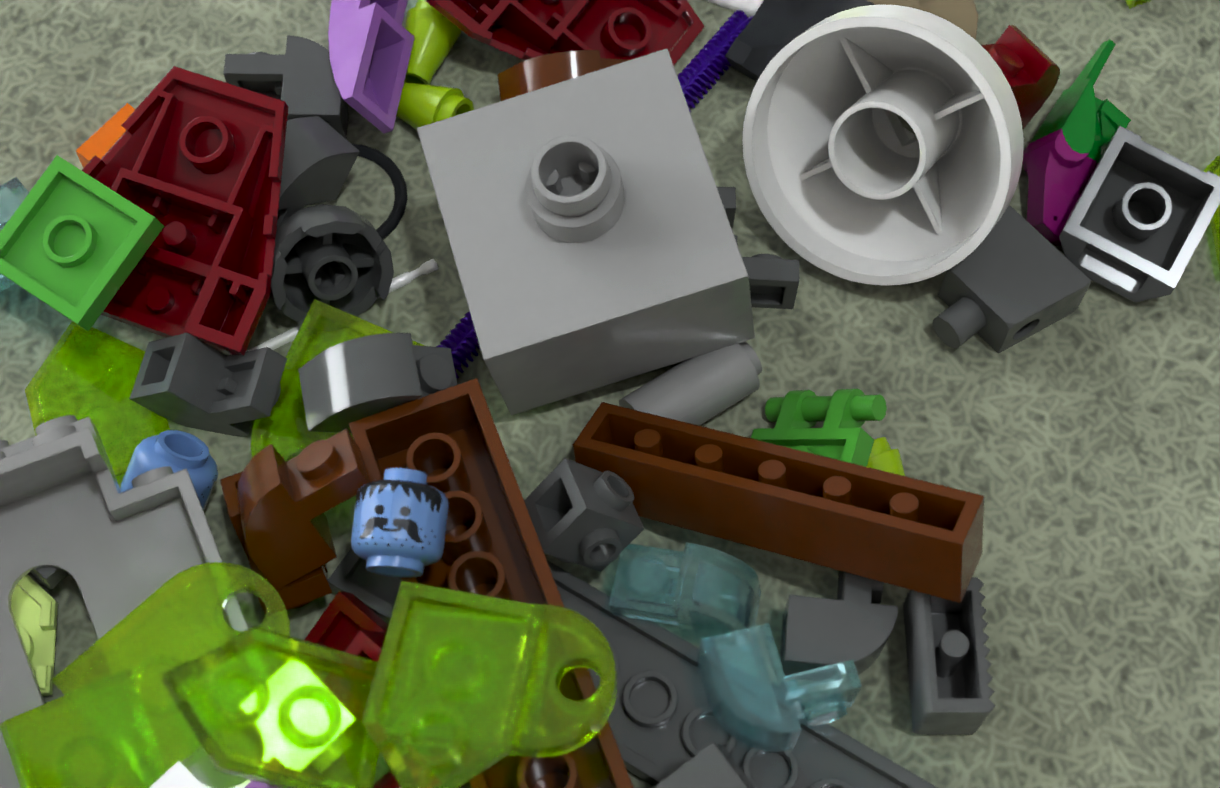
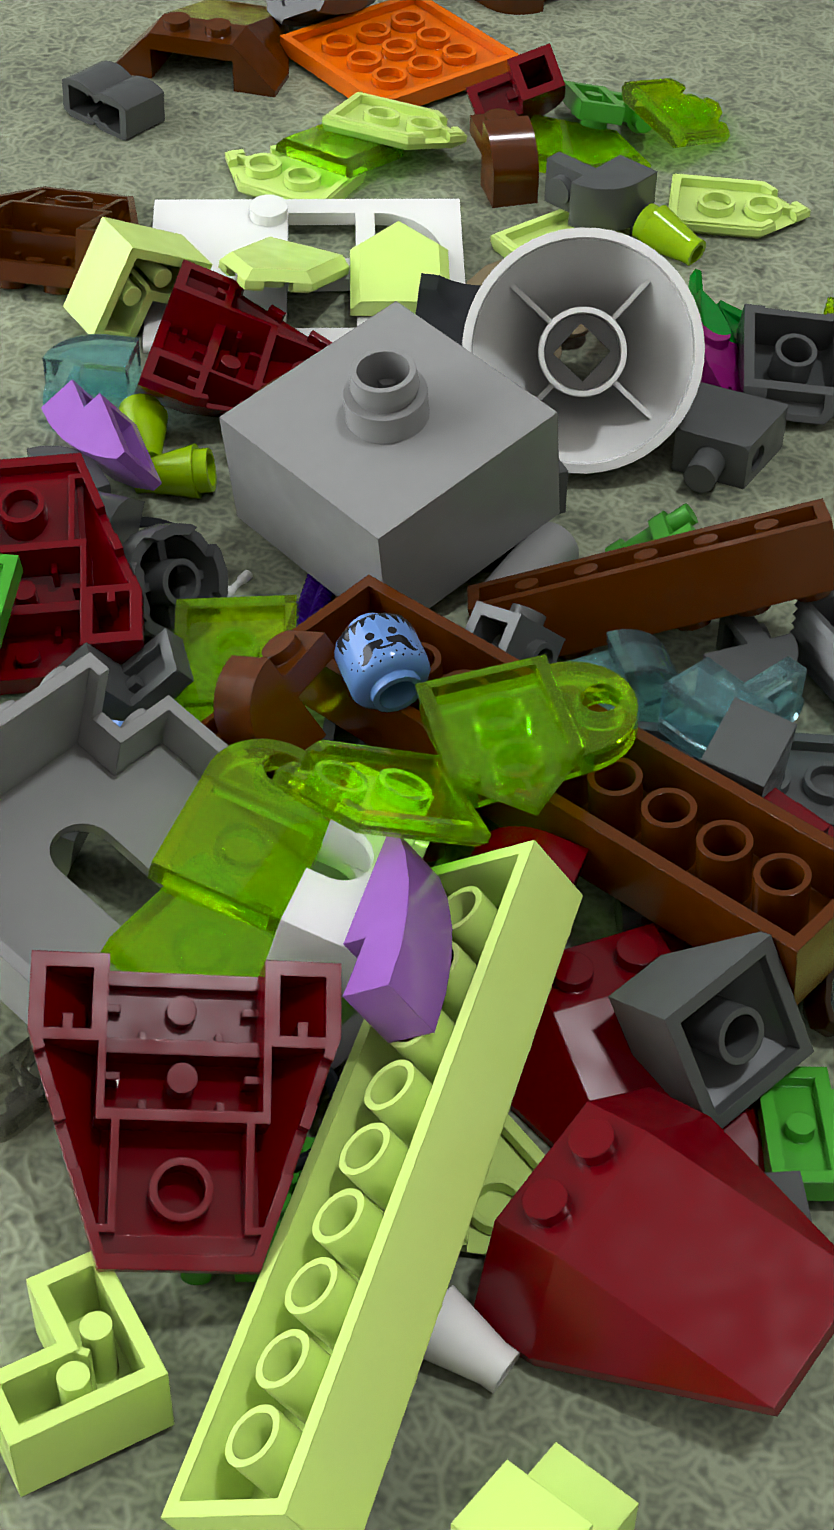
camera: 25 degrees left, 20 degrees down
(370, 377) = (265, 605): dark grey brick -> none

